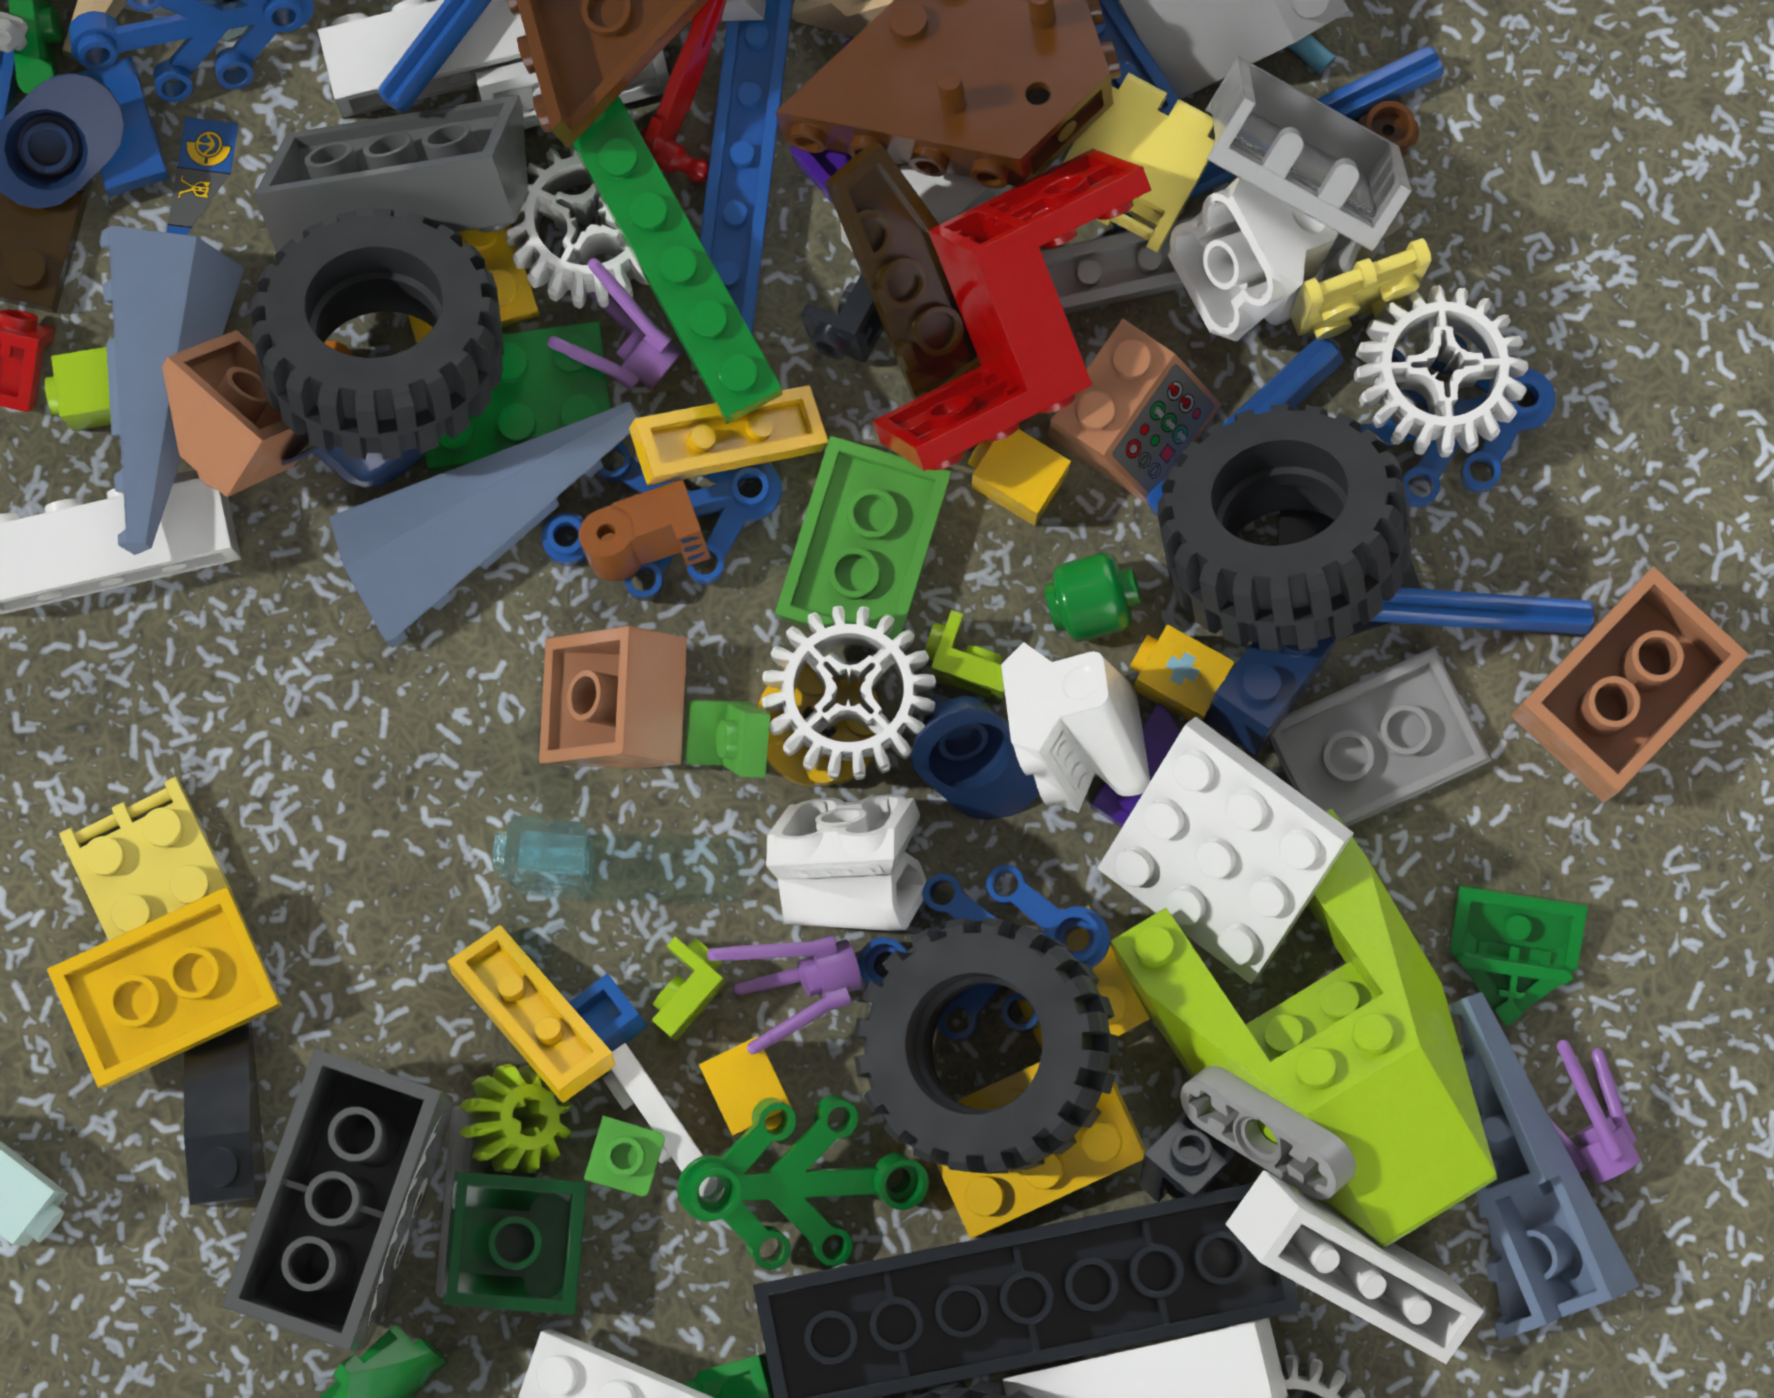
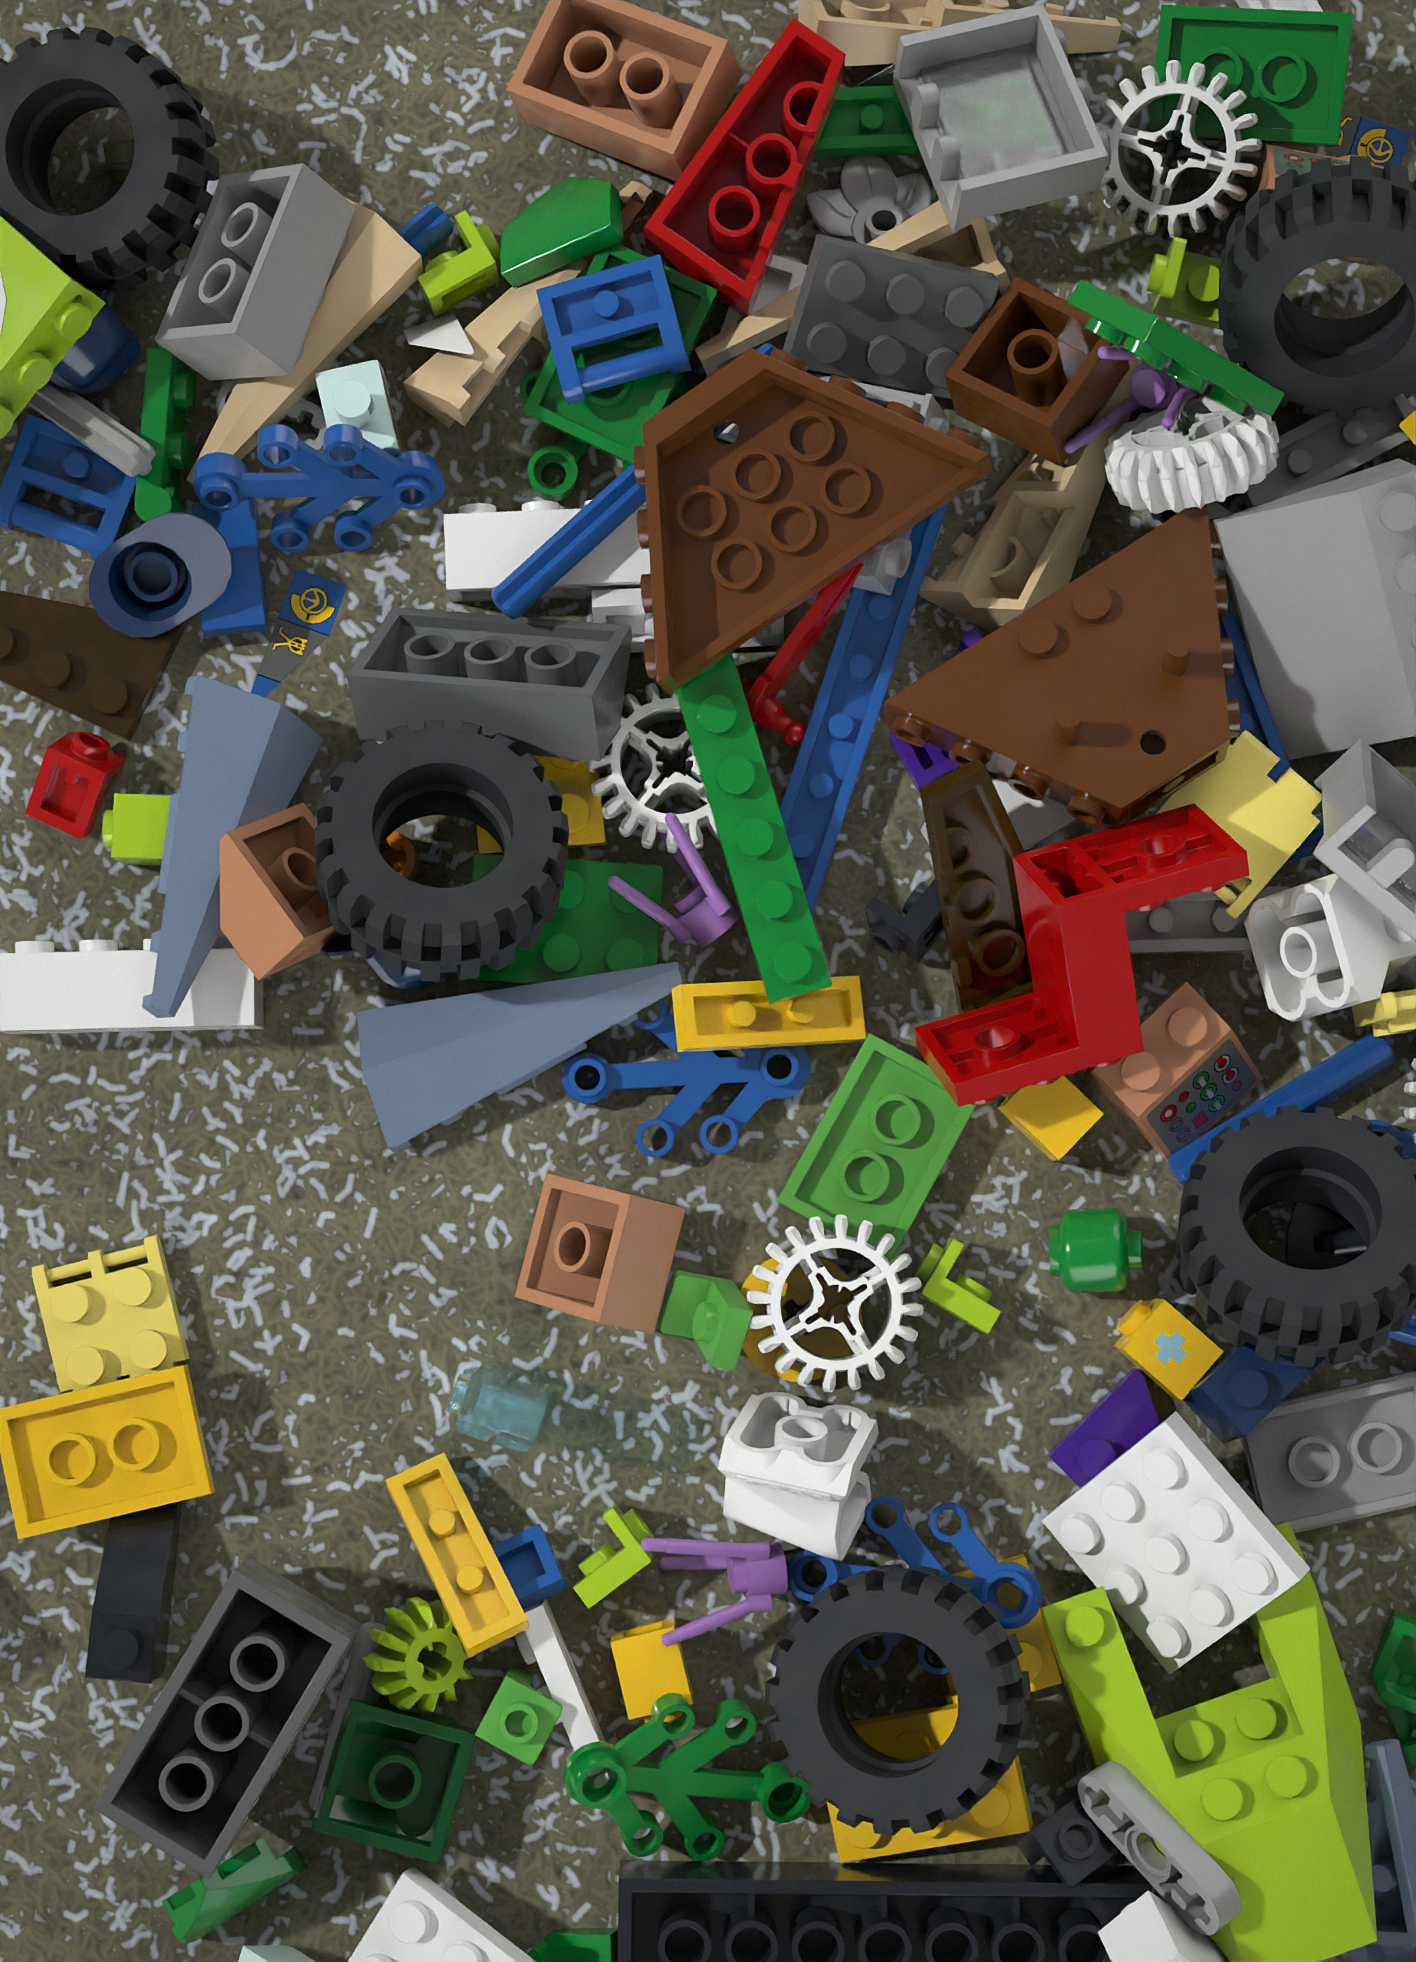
camera: 10 degrees right, 5 degrees up
(642, 531) = (664, 1093): dark orange leg -> none
(971, 759) = (946, 1389): dark blue piece -> none
(1074, 723) = (1050, 1386): white piece -> none

